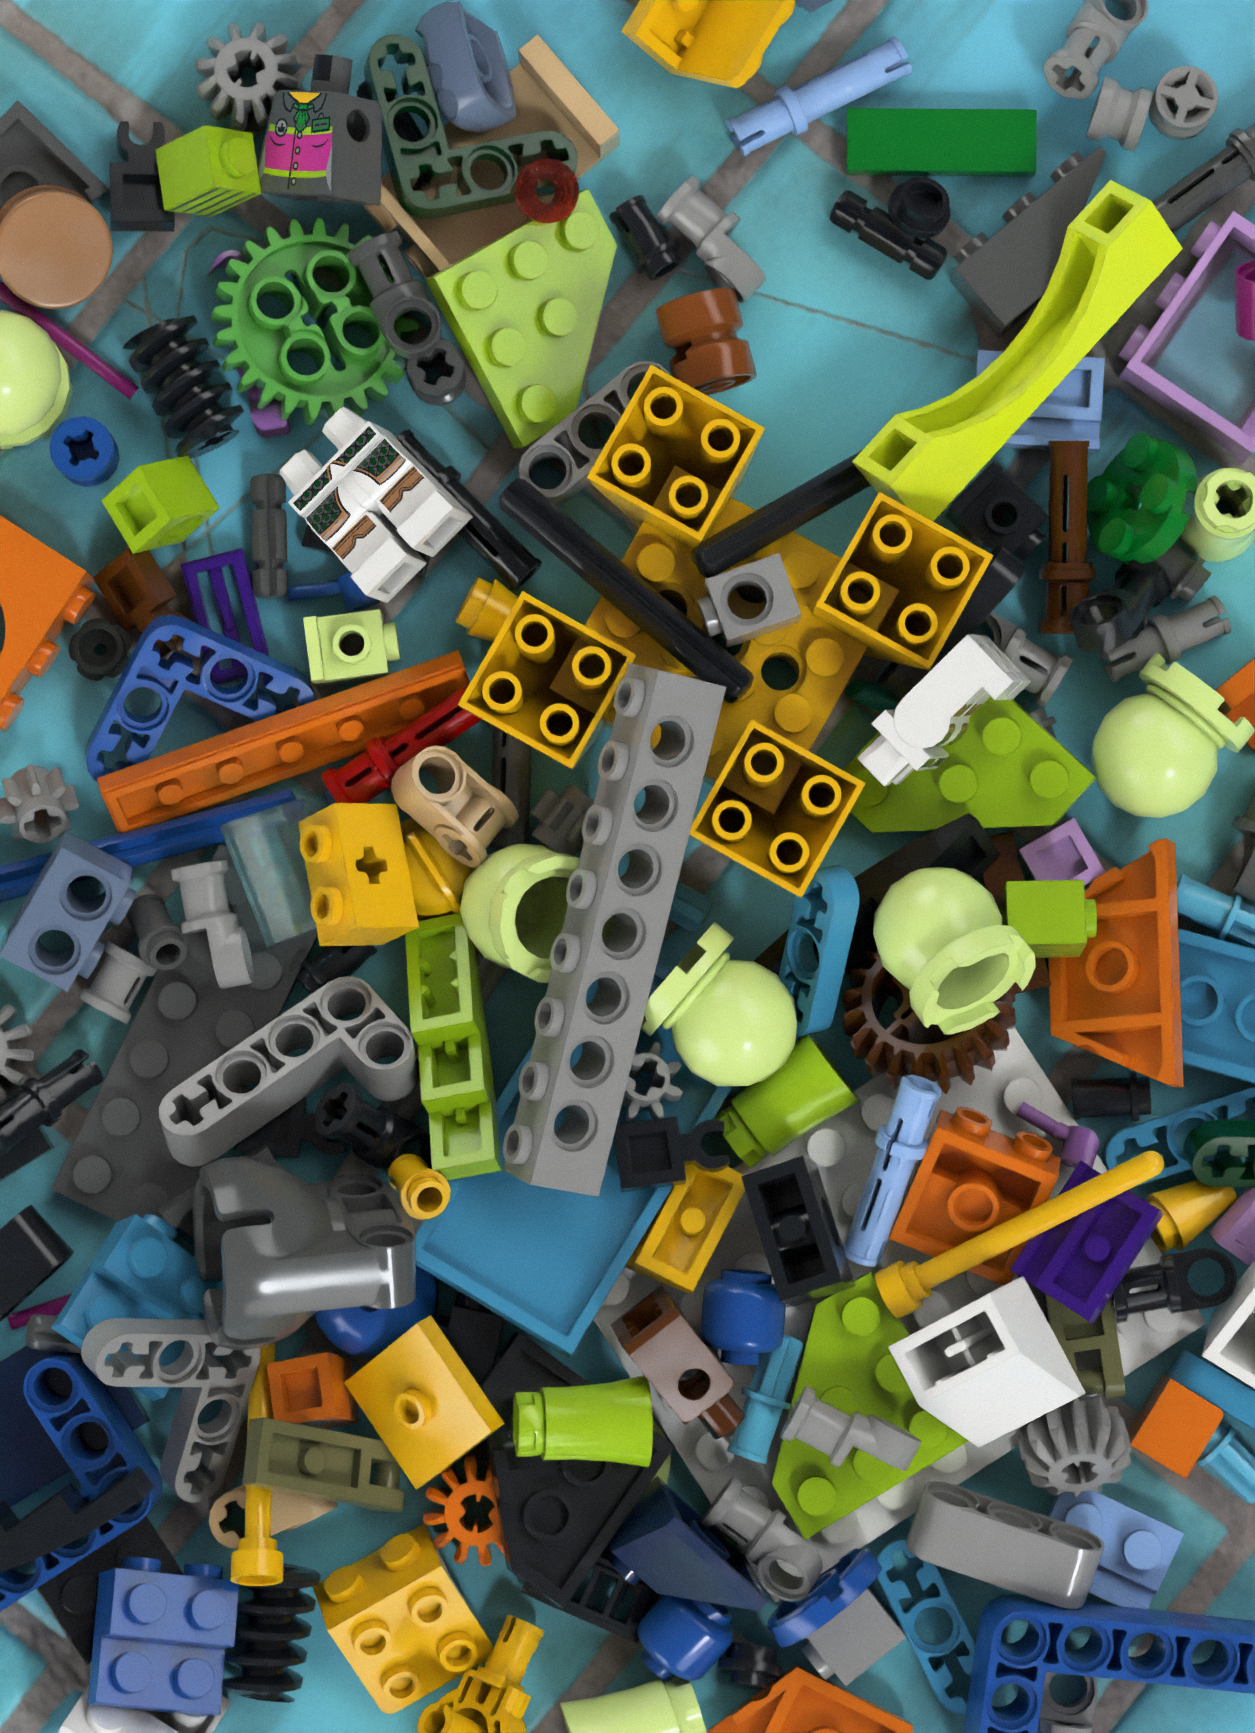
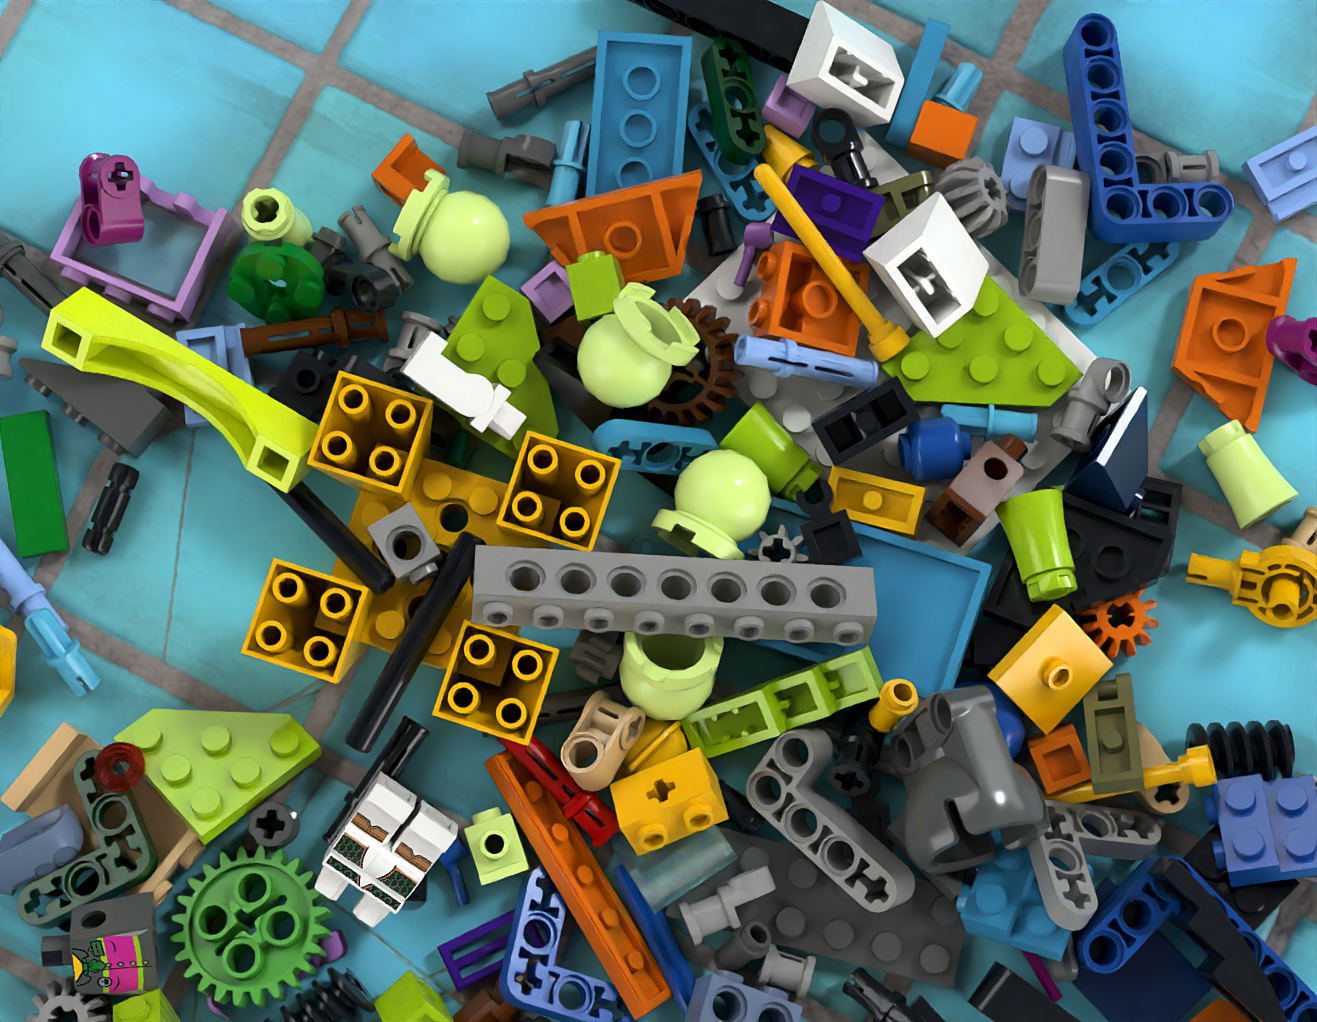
camera: 105 degrees left, 5 degrees down
(269, 536) = (423, 928): dark grey axle -> none
(397, 297) = (218, 866): dark grey connector -> none
(402, 1621) = (1207, 657): yellow bracket -> none
(485, 609) = (449, 746): yellow cone -> none
(563, 441) = (312, 714): light grey beam -> none
(646, 238) = (144, 687): black pin -> none
(684, 1637) = (1174, 450): blue head -> none
(705, 341) = (213, 625): dark orange wheel -> none
(710, 142) = (61, 651): none -> medium azure axle
(710, 231) = (128, 642): light grey connector -> none
(749, 1665) = (1180, 400): black plate -> none
(828, 1597) = (1115, 341): blue tile -> none
(837, 1432) = (1005, 359): light grey connector -> none
(853, 1639) = (1141, 332): light grey brick -> none
(920, 207) = (85, 488): black plate -> none

